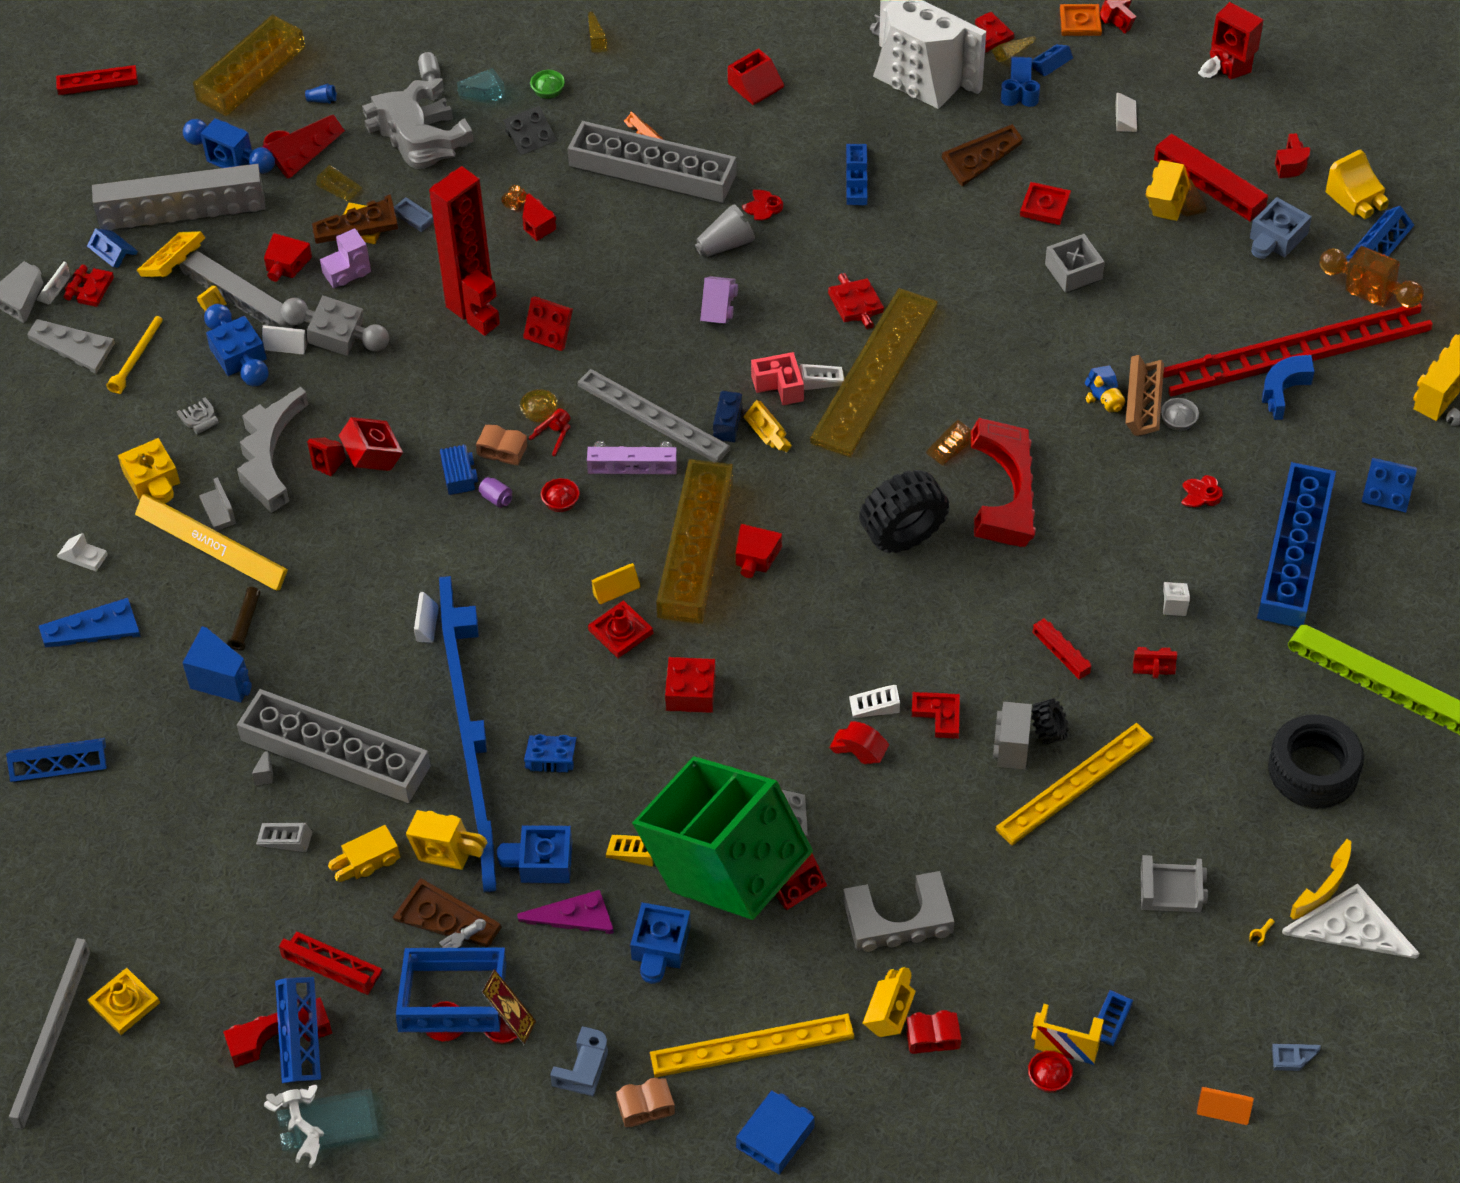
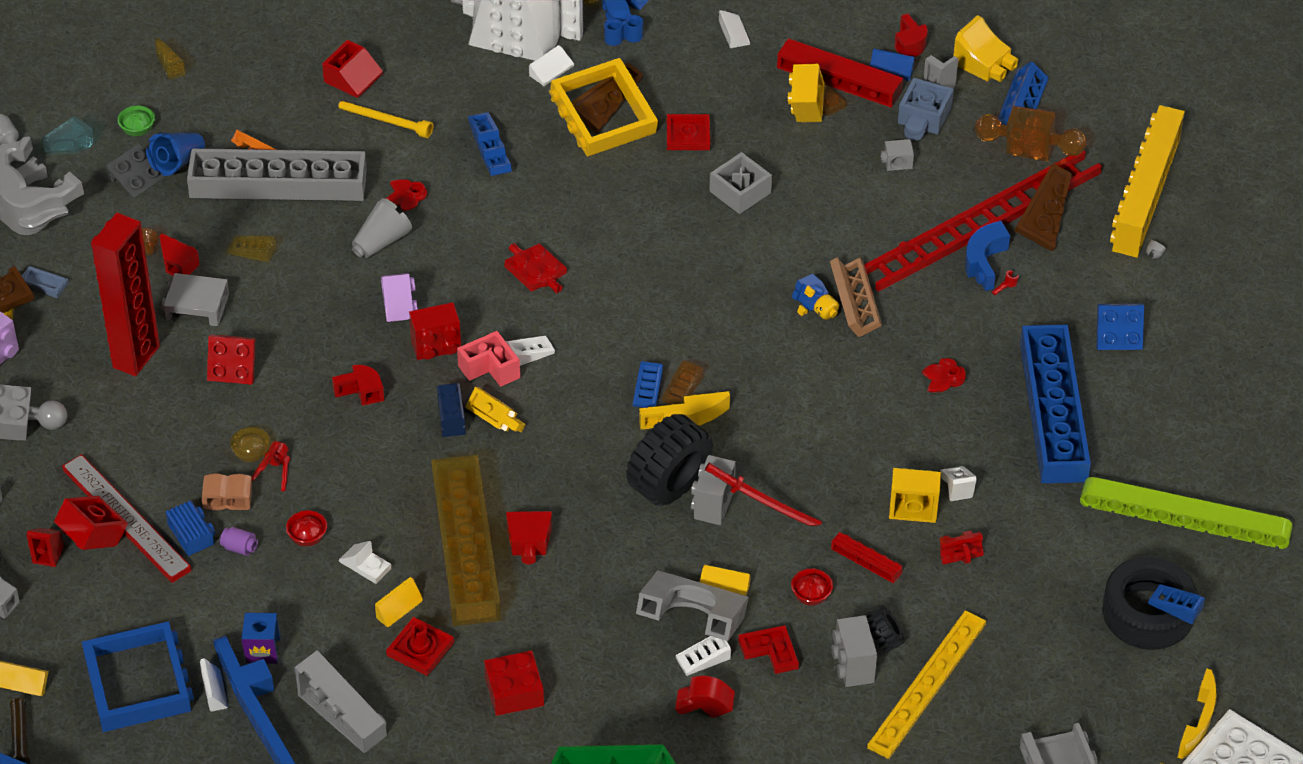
camera: 20 degrees left, 5 degrees down
(362, 627) = (142, 711): none -> blue window
(412, 457) = (138, 529): none -> light grey tile
(476, 584) = (259, 637): none -> piece
(477, 293) = (151, 344): red arch -> none
(527, 662) = (338, 702): none -> light grey wedge
(540, 259) = (196, 297): none -> light grey panel
(564, 118) = (172, 151): none -> blue cone
(601, 539) = (365, 562): none -> white slope
(616, 233) = (264, 247): none -> clear yellow slope
(632, 459) = (368, 475): lavender piece -> none
(654, 416) = (372, 427): light grey tile -> none
(658, 370) = (363, 381): none -> red brick
(738, 339) = (435, 331): none -> red brick
(801, 146) = (422, 128): none -> yellow piece
(873, 372) = (580, 334): clear yellow plate -> none
(907, 663) = (665, 591): none -> light grey arch
(918, 640) = (726, 579): none -> yellow slope
(923, 424) = (650, 372): none -> blue slope
(939, 549) = (712, 494): none -> light grey brick
(940, 112) = (550, 66): none -> white slope
(950, 471) = (697, 407): none -> yellow slope
(976, 193) = (592, 145): none -> yellow window
(977, 567) = (737, 484): none -> red sword
(999, 663) = (811, 586): none -> red hat
(1010, 448) = (746, 376): red arch -> none
(1126, 600) = (914, 495): none -> yellow brick
(1179, 414) = (895, 306): light grey hat -> none
(1236, 268) = (897, 155): none -> light grey brick
(1265, 179) = (893, 63): none -> blue slope
(1299, 416) = (1008, 282): none -> red hand
(1306, 199) = (941, 73): none -> light grey panel
(1338, 778) = (1182, 612): none -> blue slope
(1357, 356) = (1045, 210): none -> reddish brown wing

